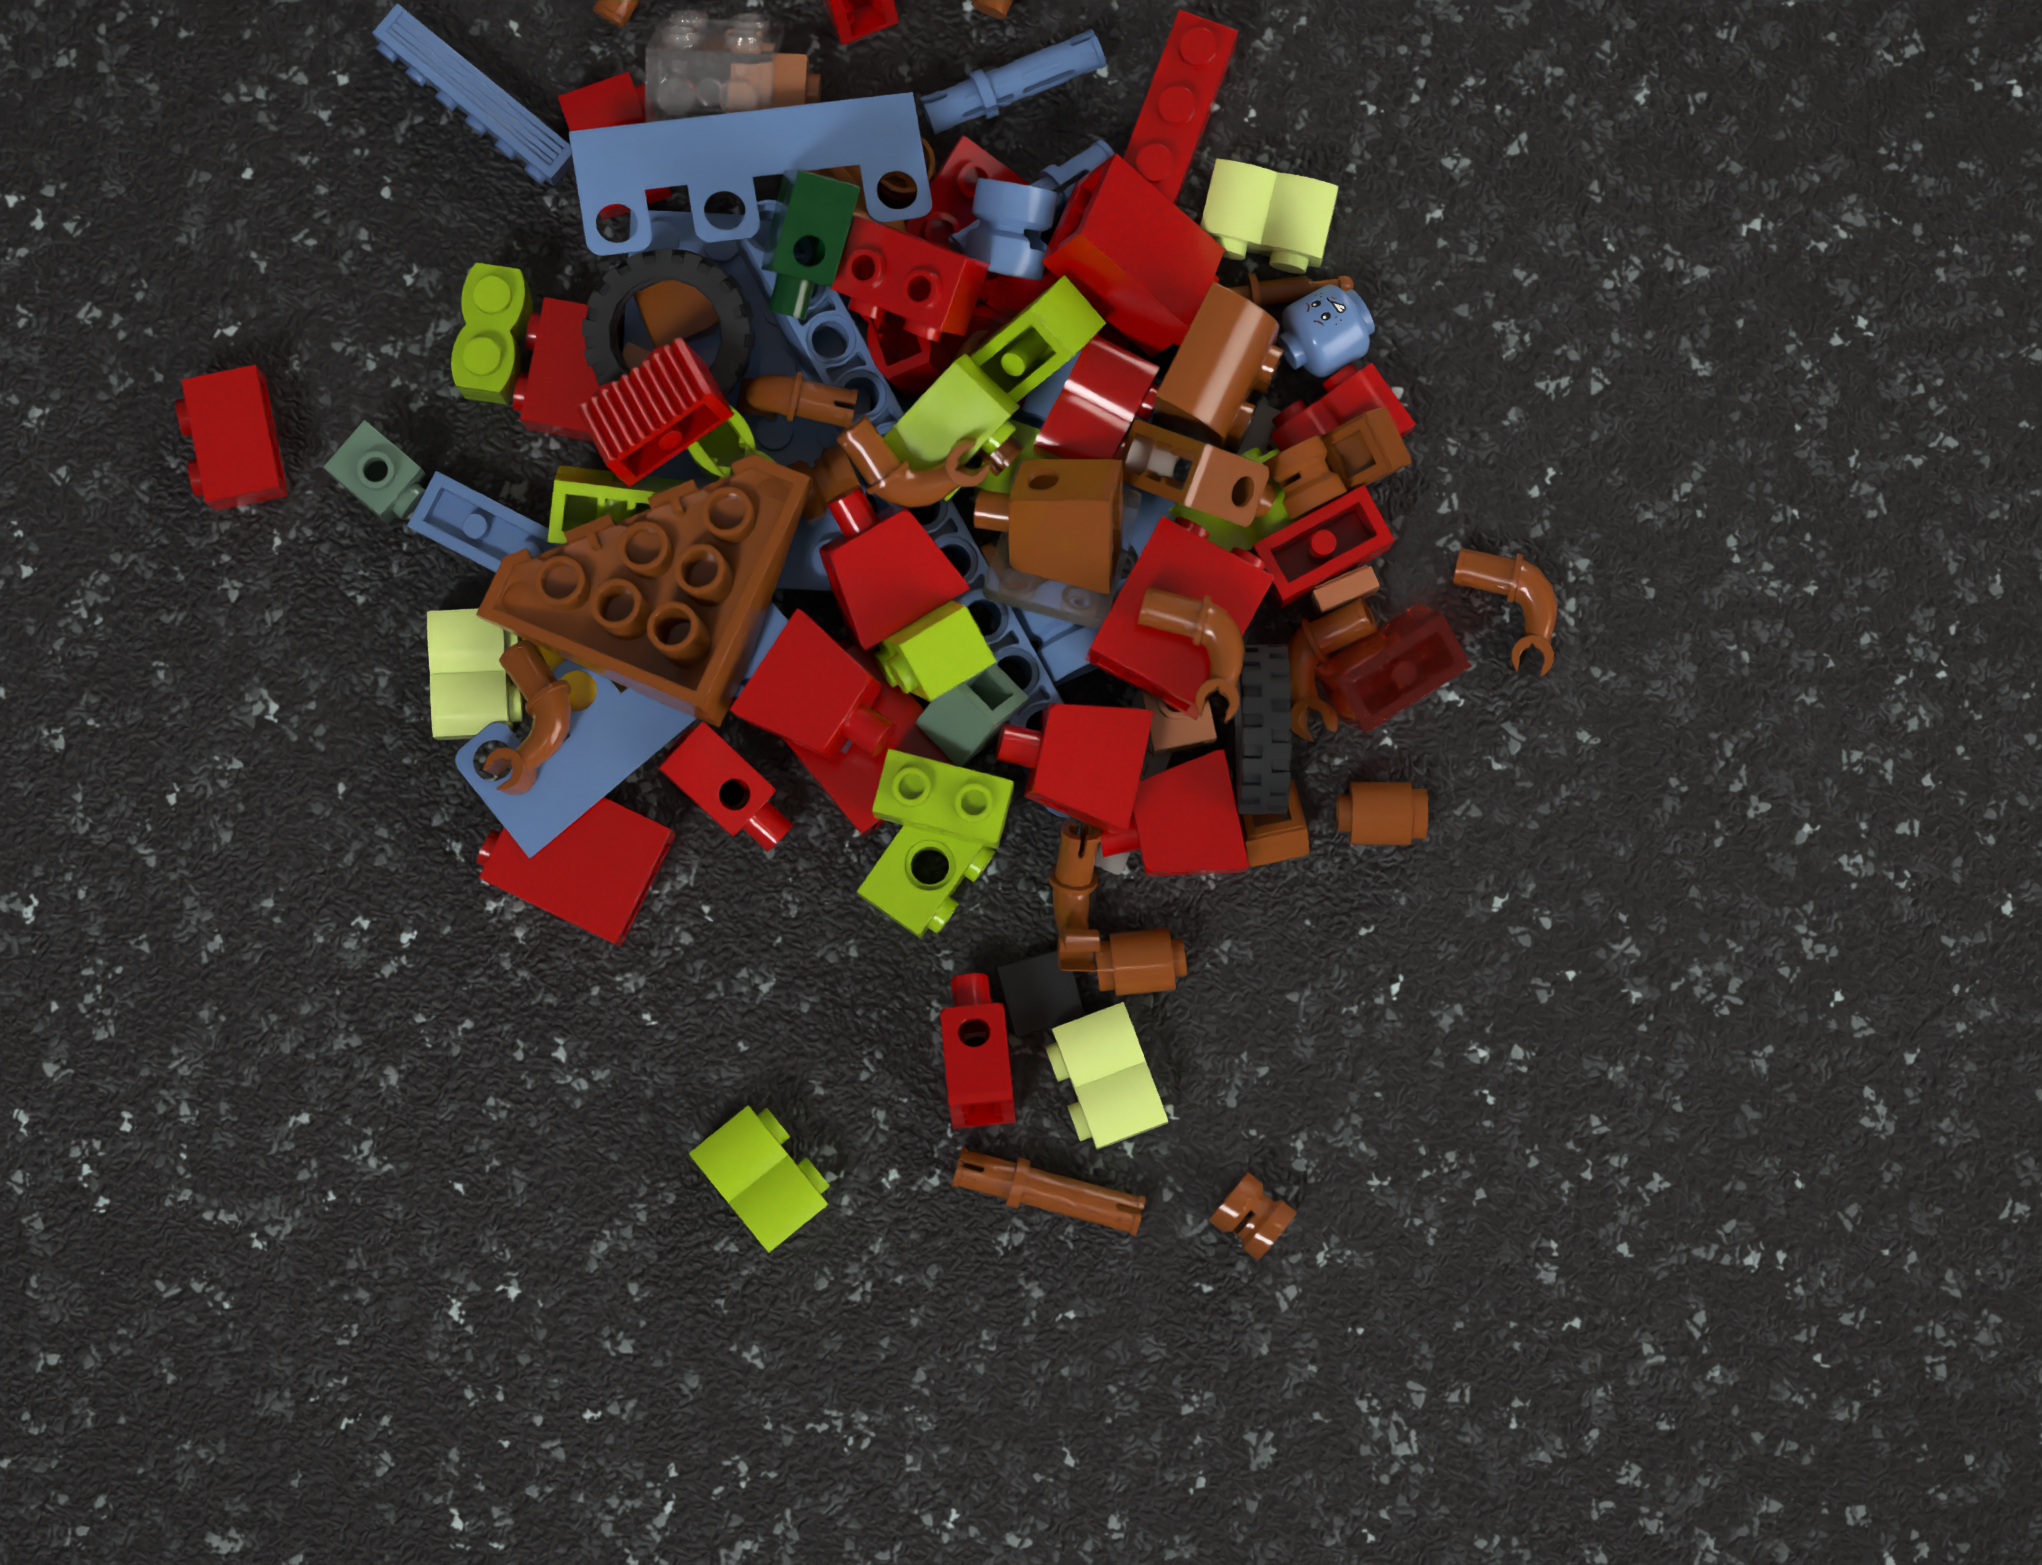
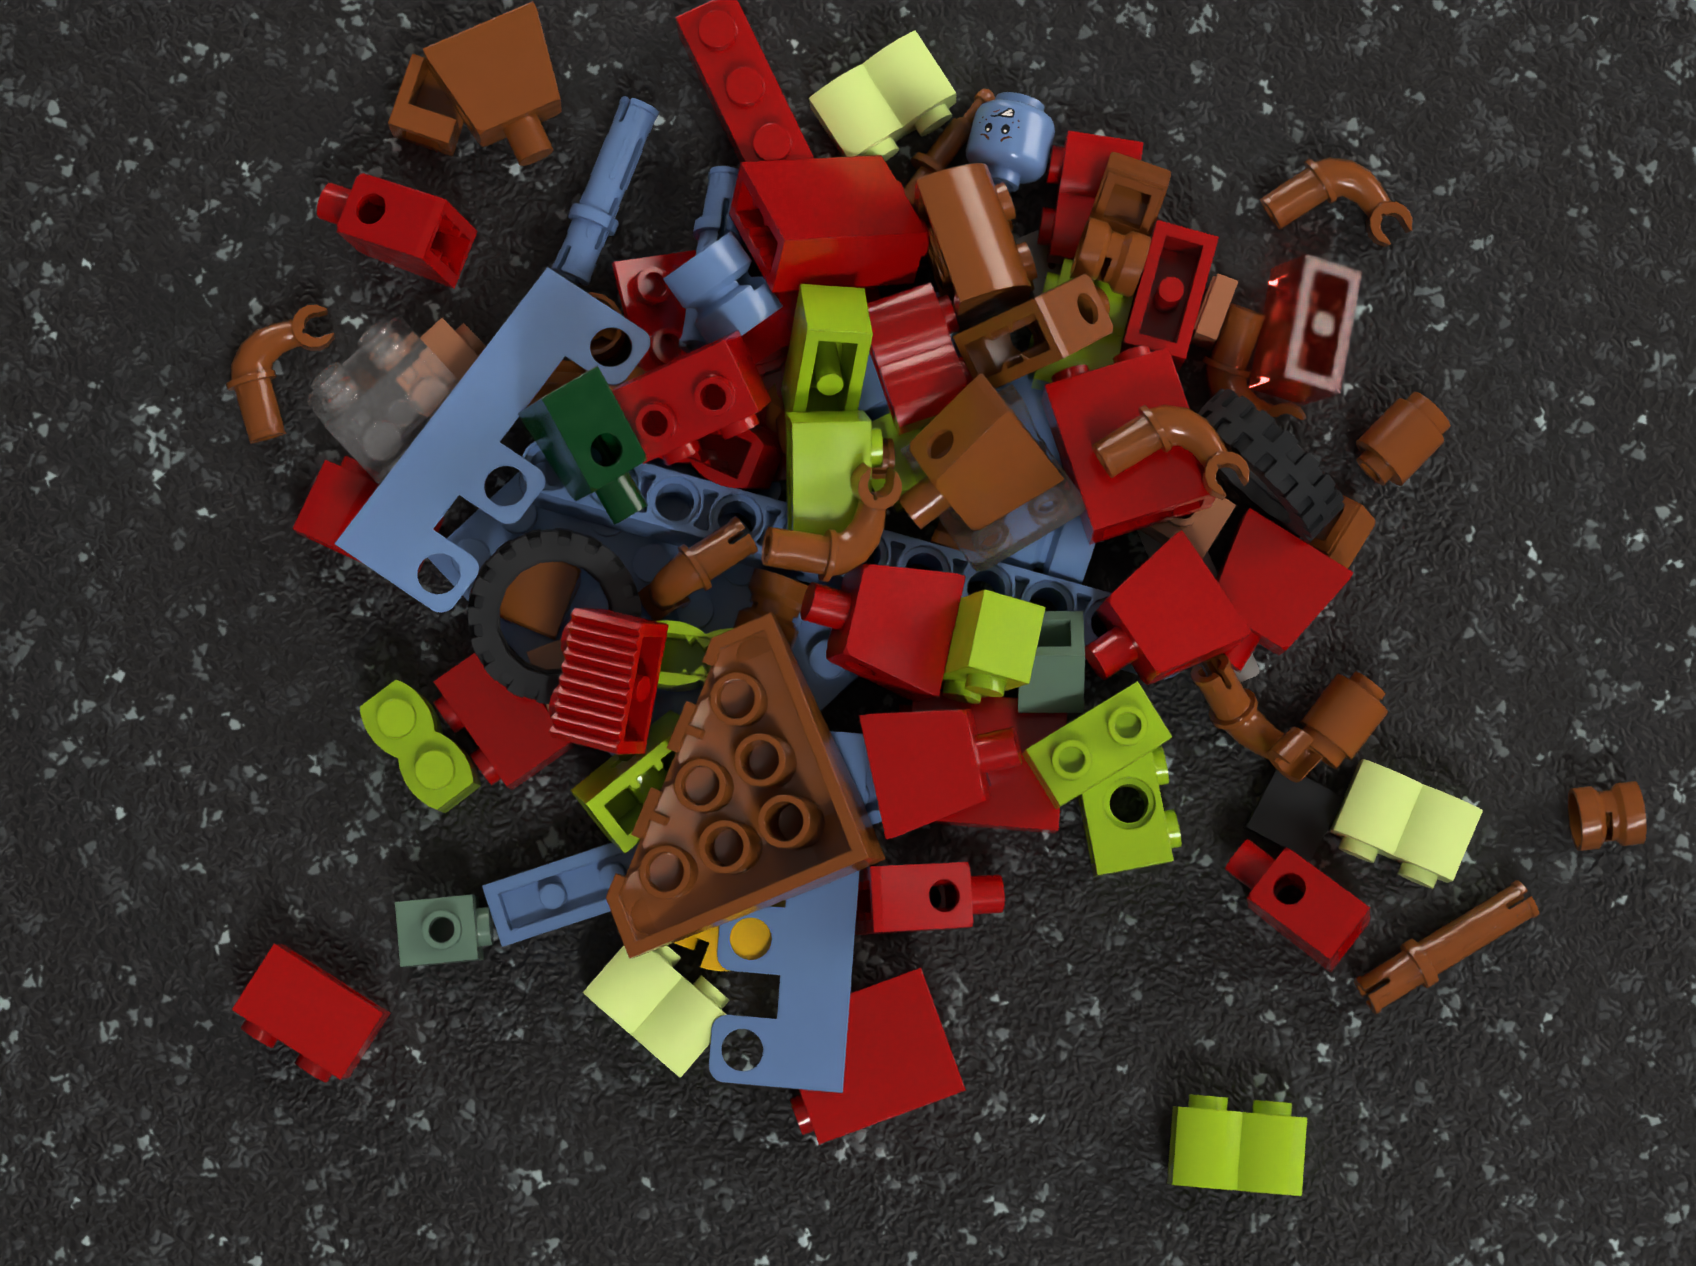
camera: 50 degrees left, 0 degrees up
(476, 95) = (228, 589): medium blue piece -> none
(551, 714) = (745, 971): dark orange piece -> none

